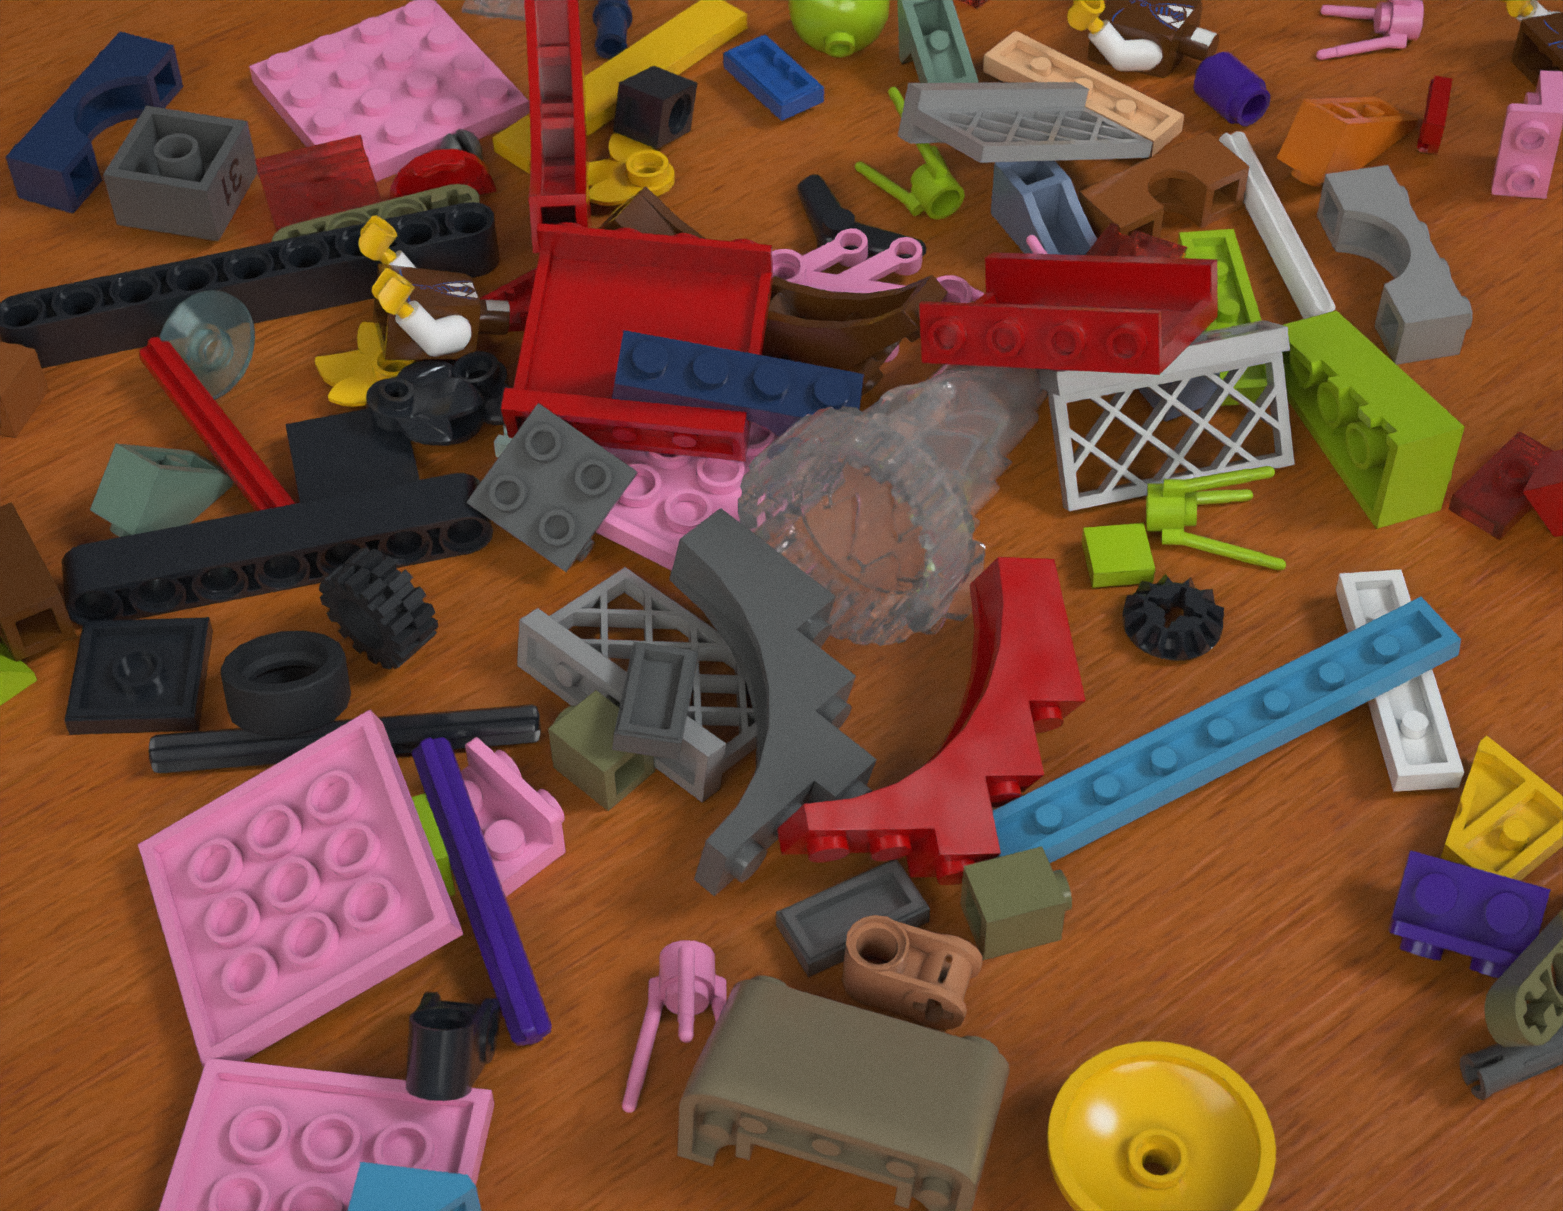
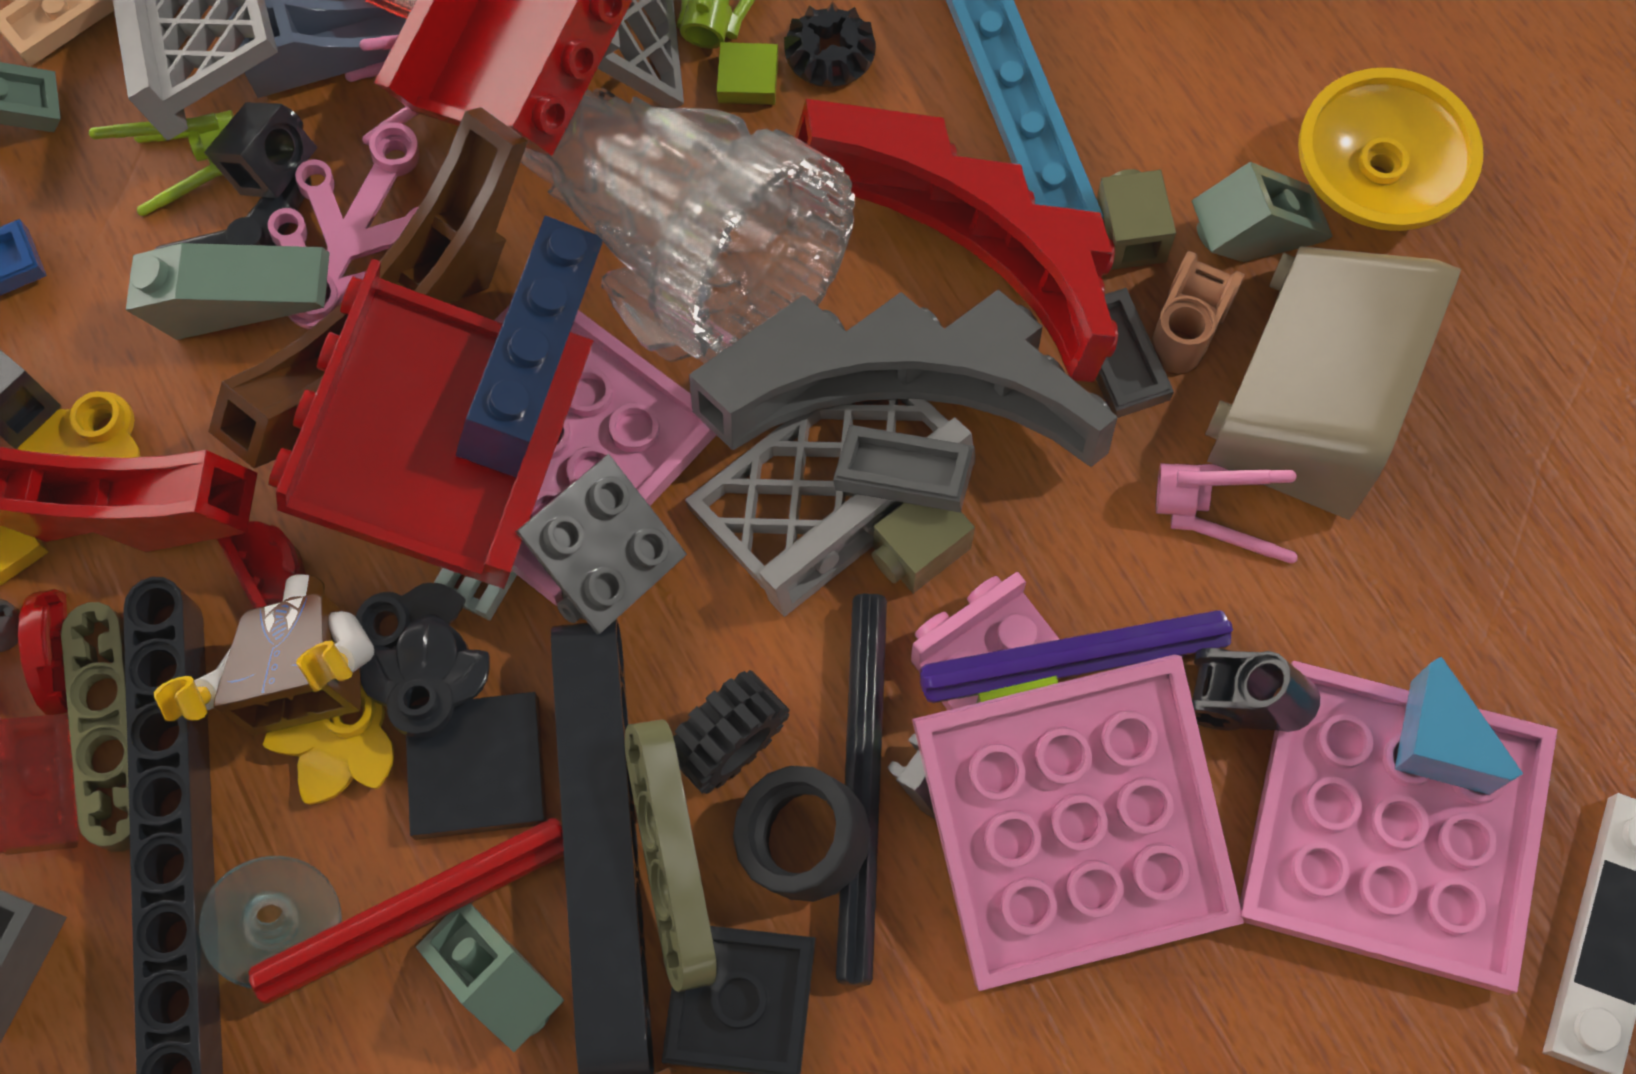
camera: 80 degrees left, 20 degrees up
(252, 576) = (670, 855): none -> olive beam
(774, 201) = (224, 286): none -> sand green slope
(900, 216) = (261, 149): none -> black brick
(1042, 1020) = (1259, 215): none -> sand green slope

